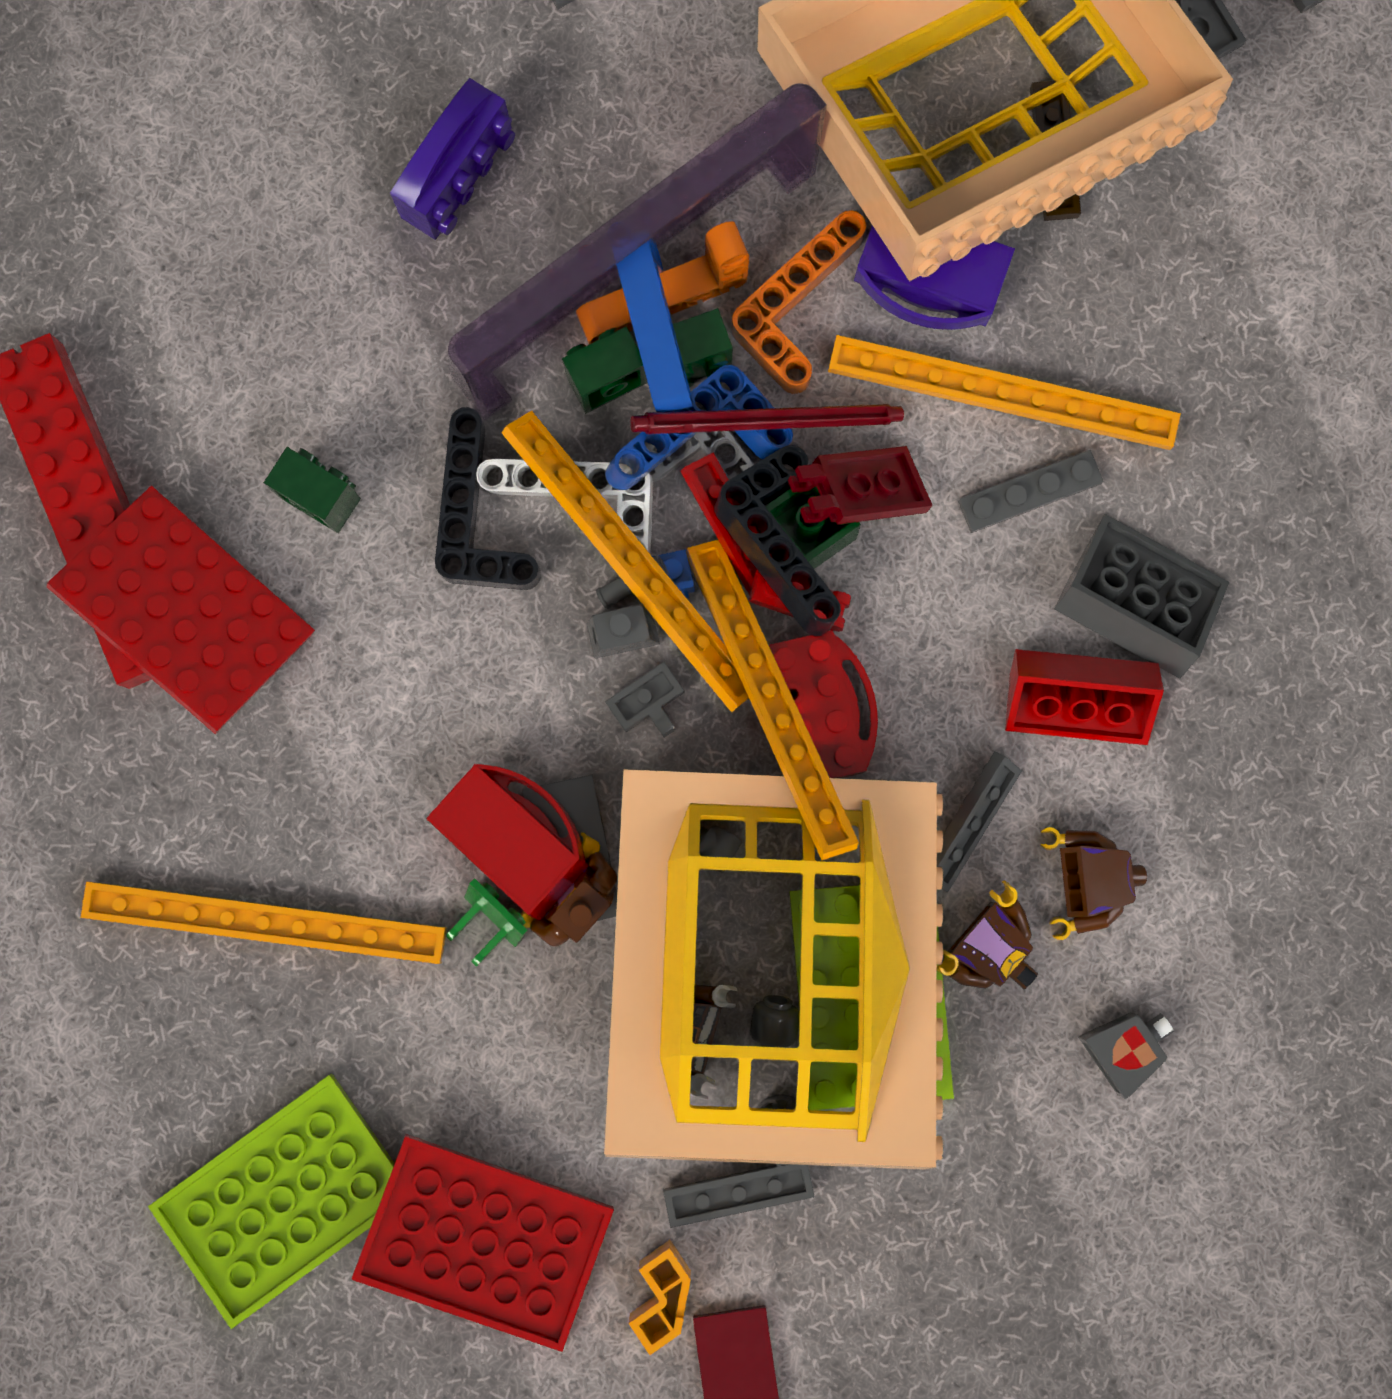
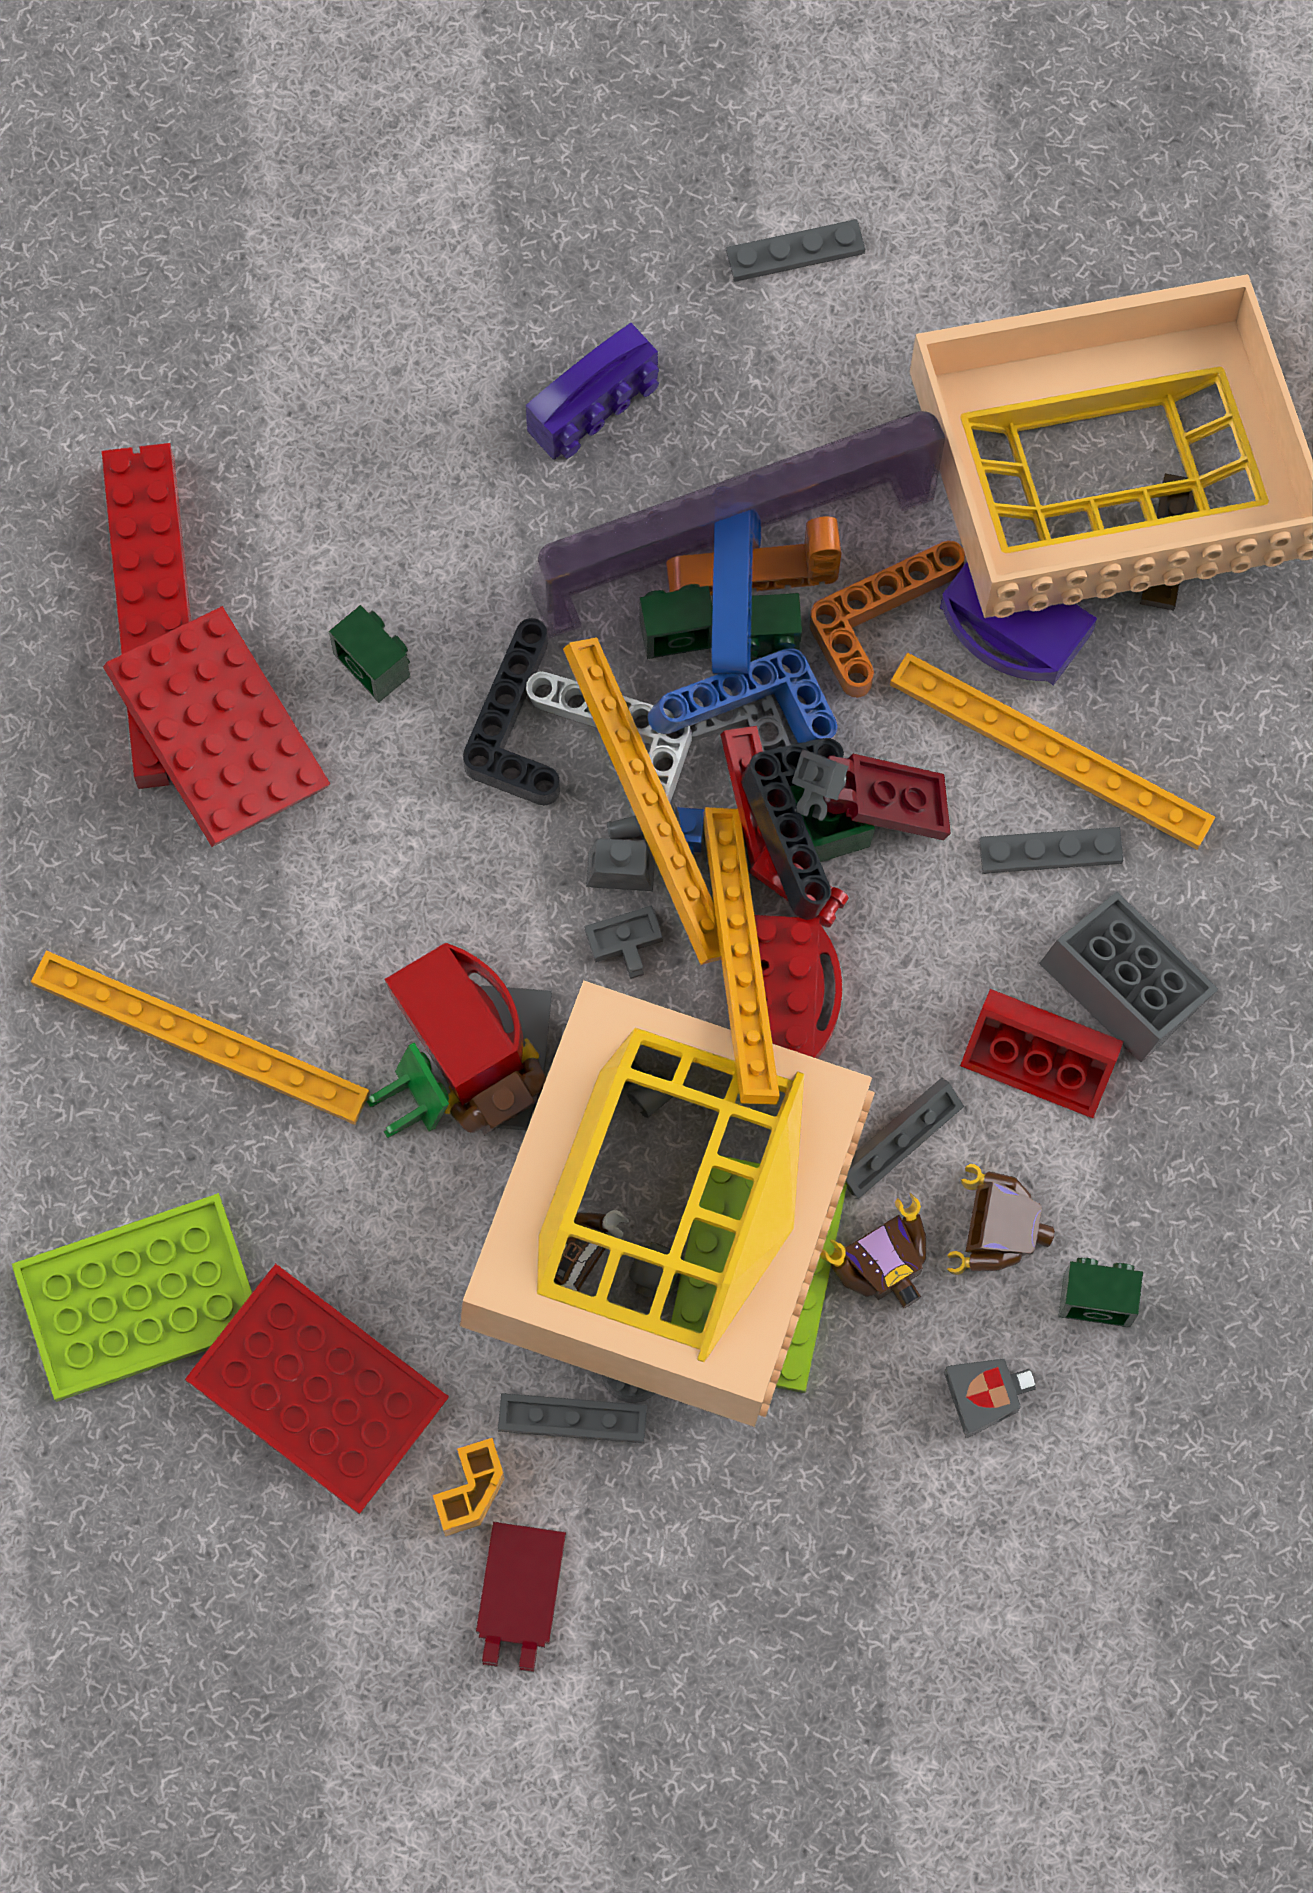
camera: 15 degrees right, 10 degrees down
(765, 418) = (817, 707): dark red piece -> none
(797, 494) = (819, 778): none -> dark grey plate
(1212, 924) = (1101, 1292): none -> dark green brick

